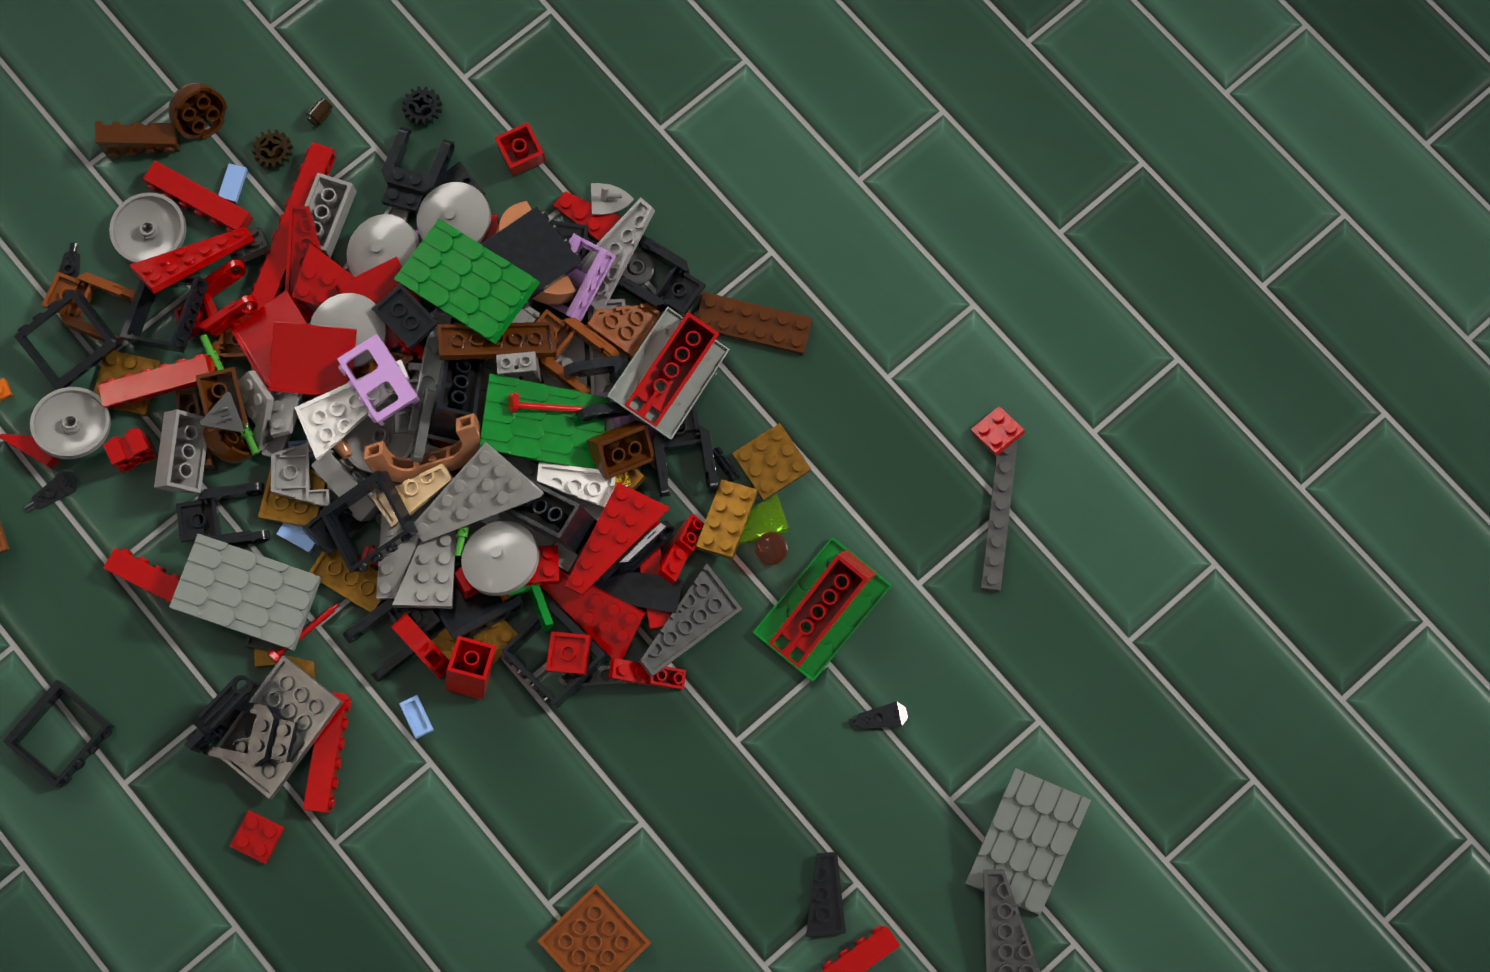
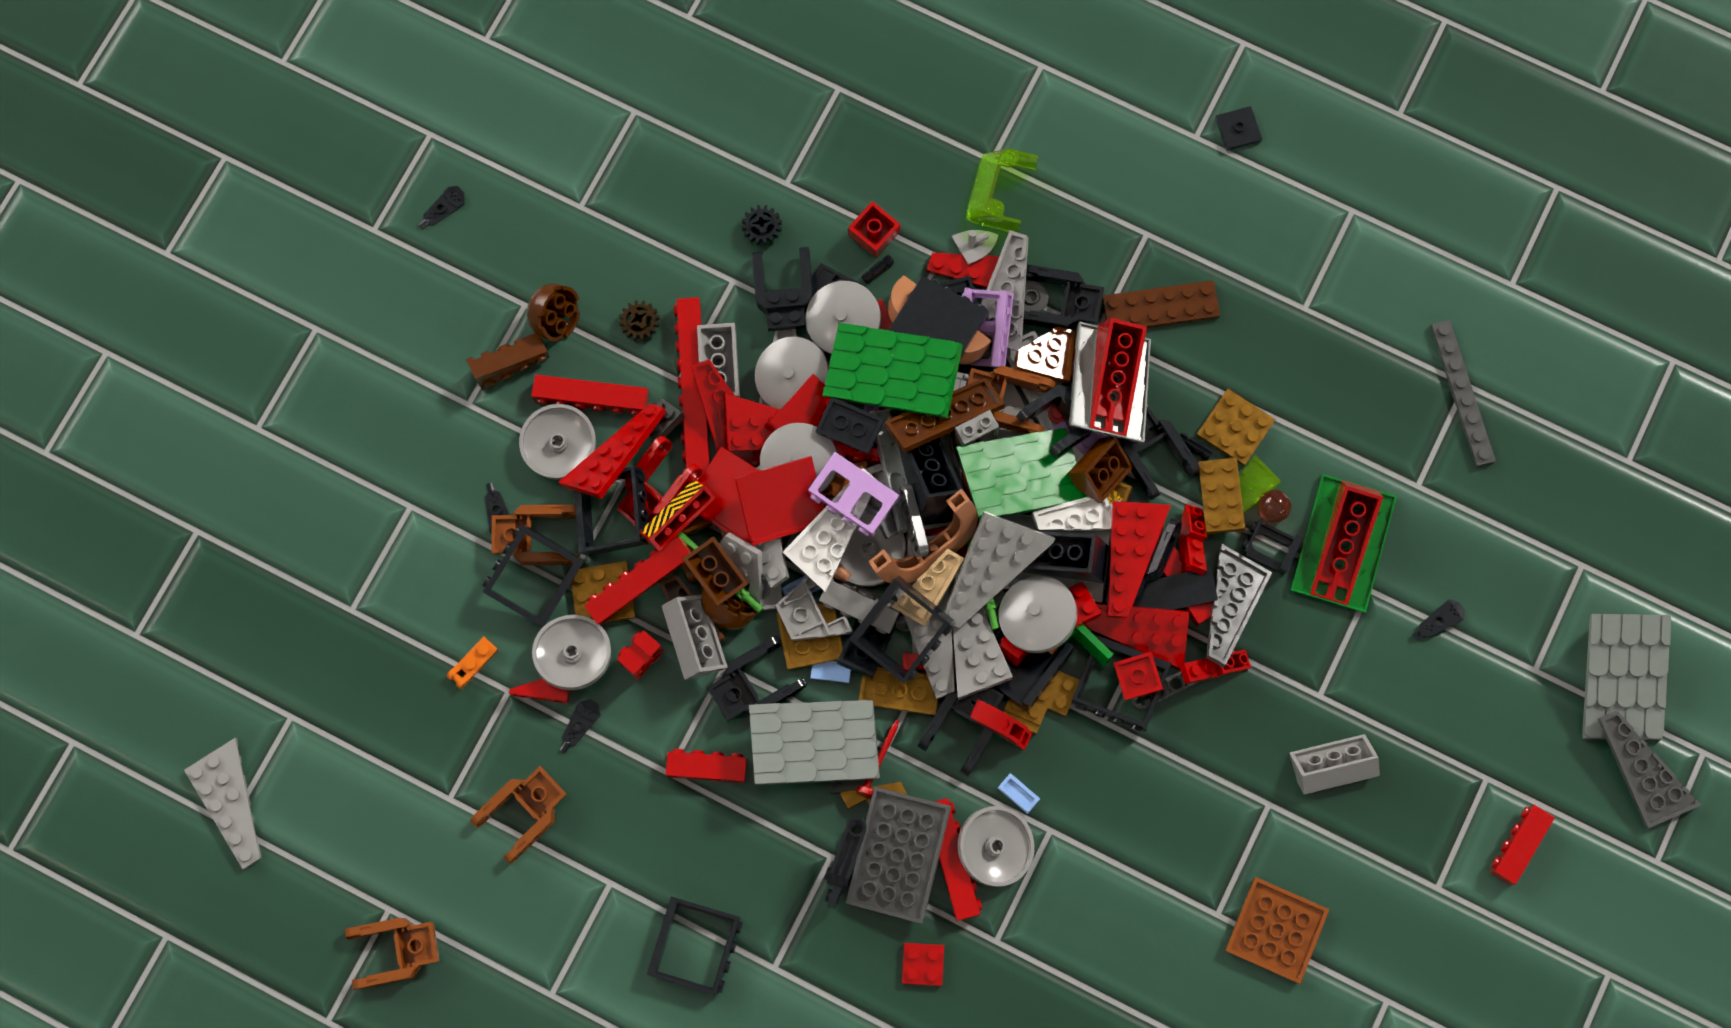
camera: 20 degrees left, 0 degrees up
(214, 335) = (677, 515): none -> red brick
(223, 415) = (724, 585): dark grey piece -> none
(233, 182) = (615, 366): light blue tile -> none
(268, 740) = (900, 868): plate -> none
(319, 112) = (667, 268): dark brown brick -> none
(370, 756) = (996, 846): none -> light grey dish
(470, 667) = (1053, 727): red slope -> none
(509, 187) = (877, 269): none -> black axle
(514, 405) = (993, 466): red piece -> none
(605, 383) = (1055, 416): none -> red plate
(629, 167) = (982, 207): none -> clear neon green windscreen
(718, 810) = (1335, 764): none -> light grey slope
(752, 564) = (1262, 528): none -> black panel
(826, 902) = (1468, 806): black wing -> none
(901, 187) = (1238, 128): none -> black plate
(997, 431) = (1428, 317): plate -> none

